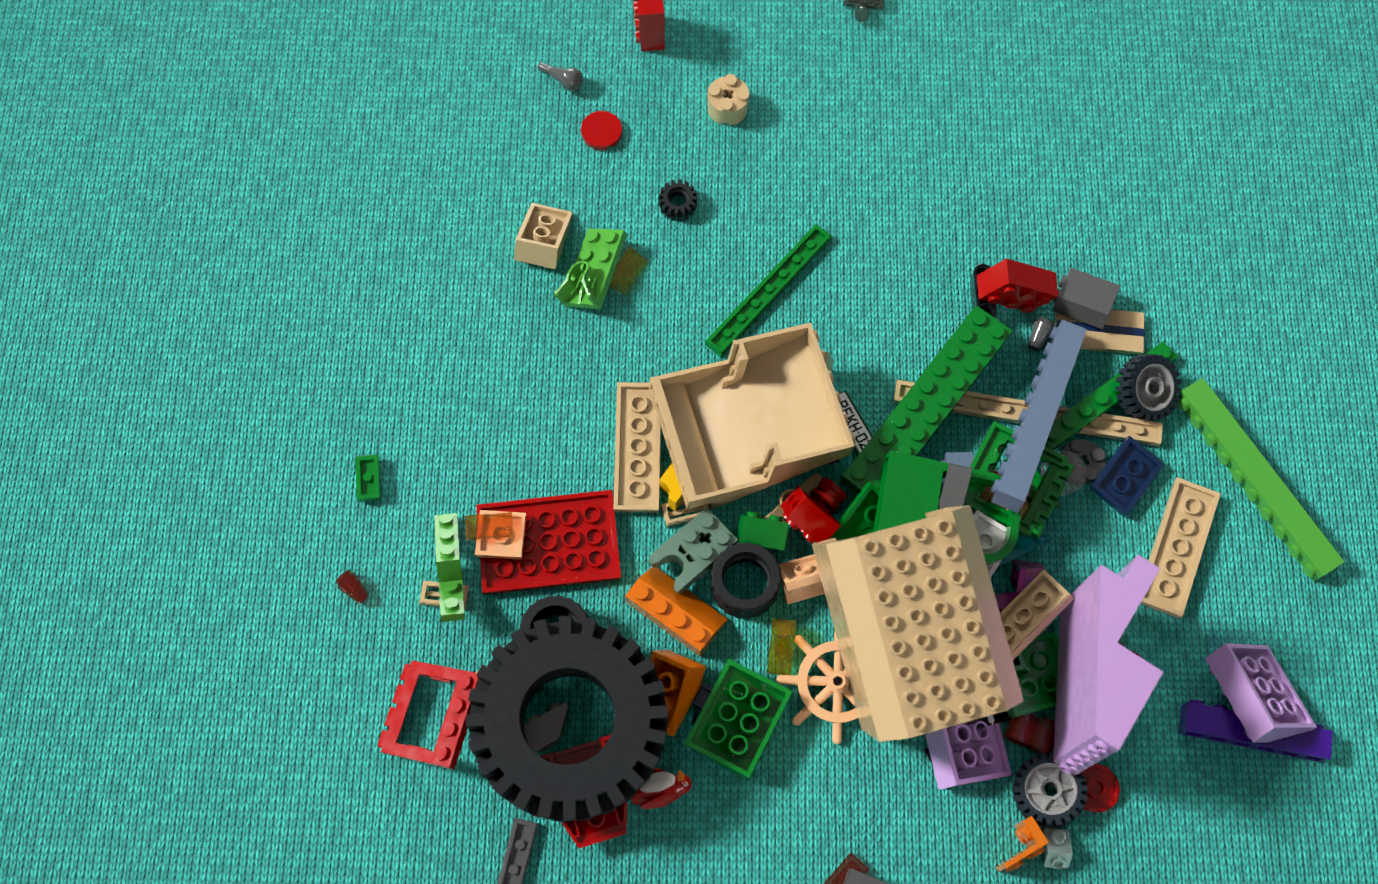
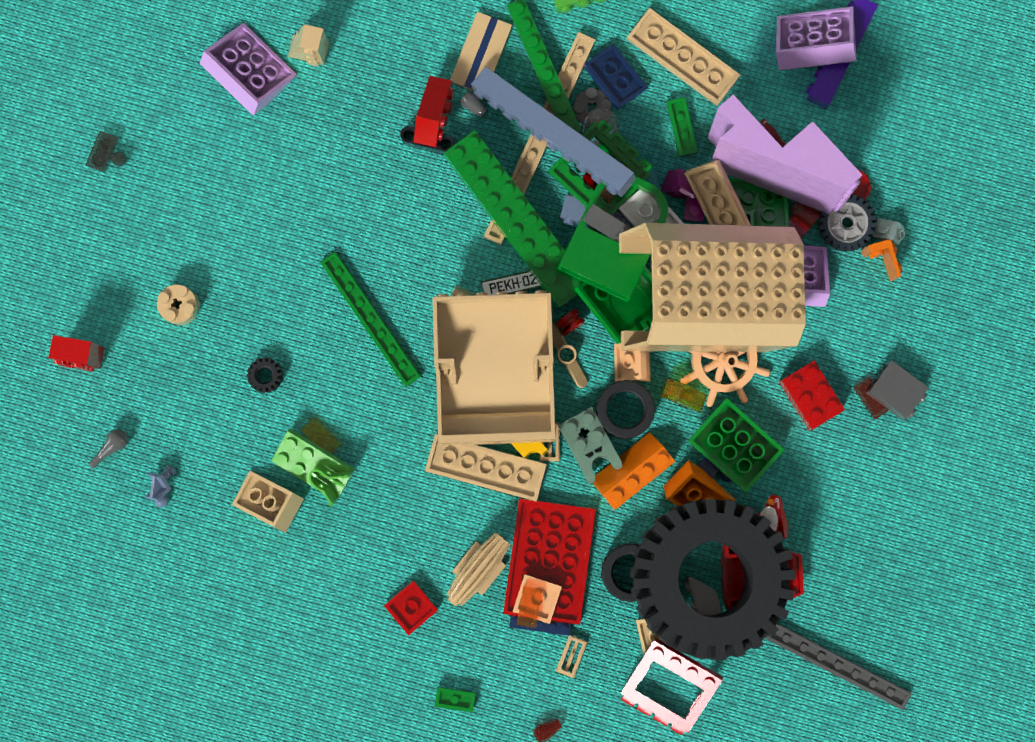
camera: 75 degrees left, 15 degrees up
(449, 567) = (553, 647): bright green bracket -> none
(461, 406) = (411, 608): none -> red plate
(473, 567) = (554, 627): none -> dark blue piece
(517, 463) = (478, 569): none -> tan plate
(531, 129) = (160, 487): none -> sand blue piece
(601, 130) = (174, 425): red tile -> none
(764, 531) = (587, 385): green brick -> none
(809, 516) = (588, 347): red piece -> none
(824, 799) = (811, 395): none -> red brick
(997, 105) = (247, 68): none -> lavender slope
(1044, 152) = (309, 45): none -> tan wedge
(1085, 298) = (453, 55): dark grey brick -> none
(1110, 557) = (681, 127): none -> green plate
(1148, 387) = (548, 33): wheel -> none

